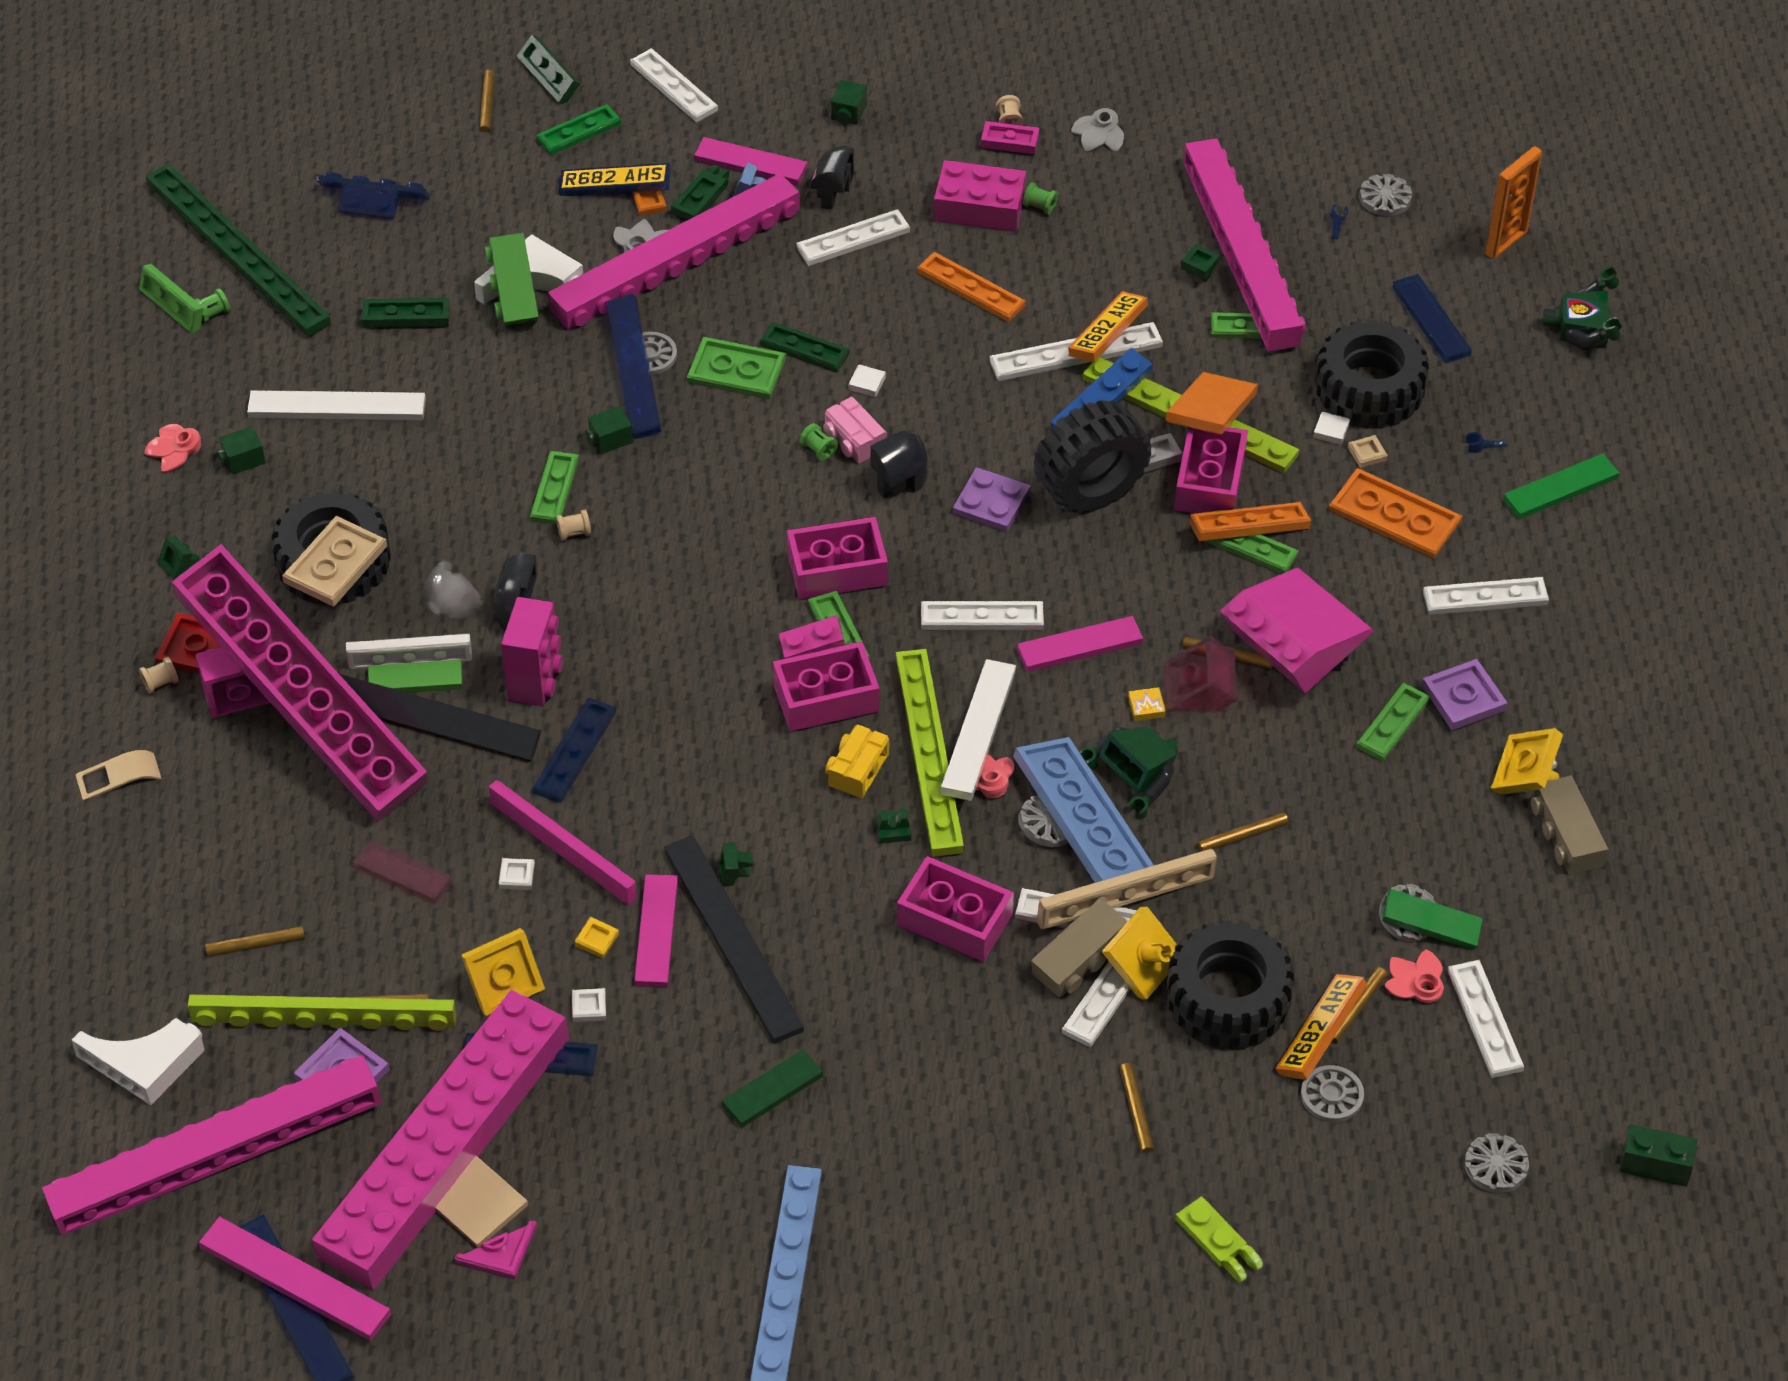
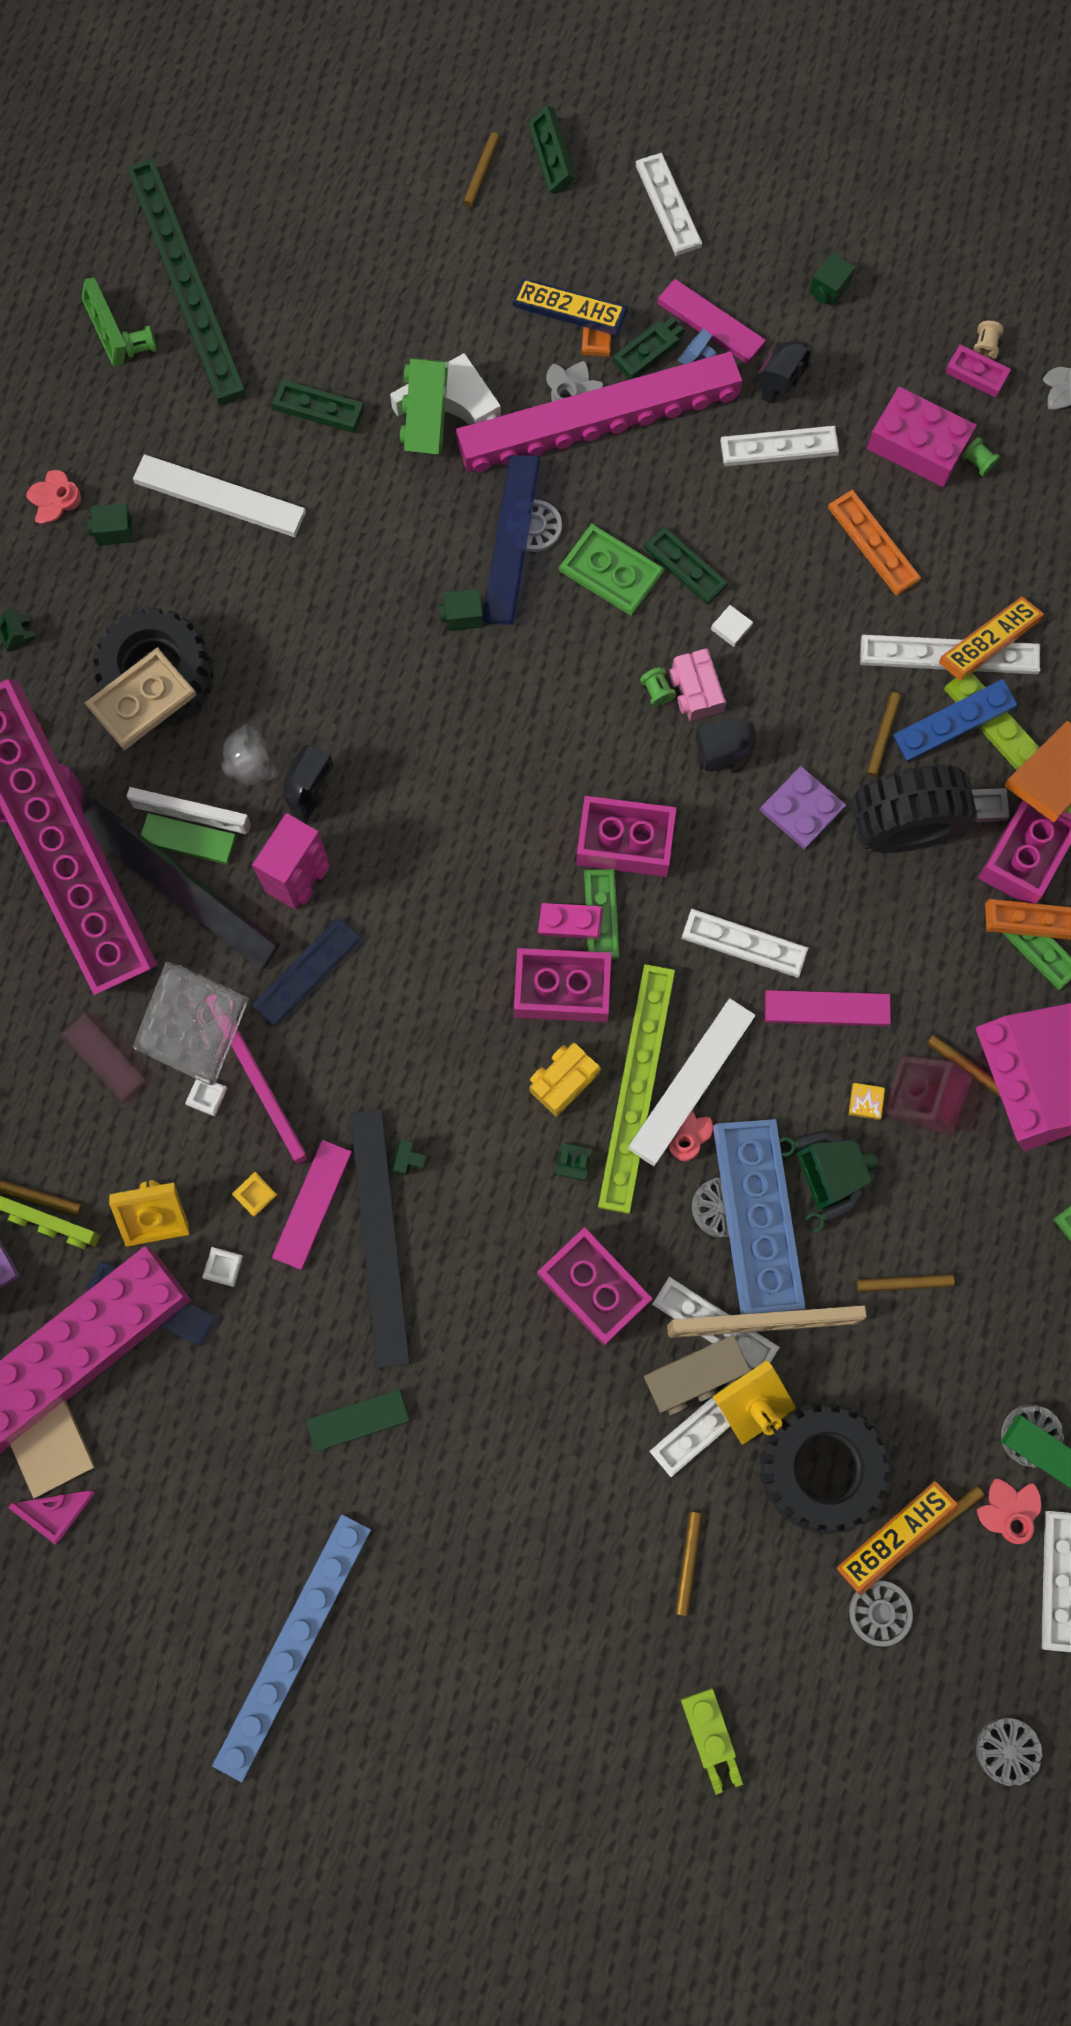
camera: 20 degrees right, 25 degrees up
(369, 197) = (329, 257): clear blue bracket -> none
(480, 810) = (190, 1023): none -> clear plate
(554, 487) = (390, 658): bright green tile -> none
(573, 525) = (391, 711): tan bush -> none
(578, 129) = (558, 231): green tile -> none
(1041, 415) = (883, 734): none -> pearl gold bar

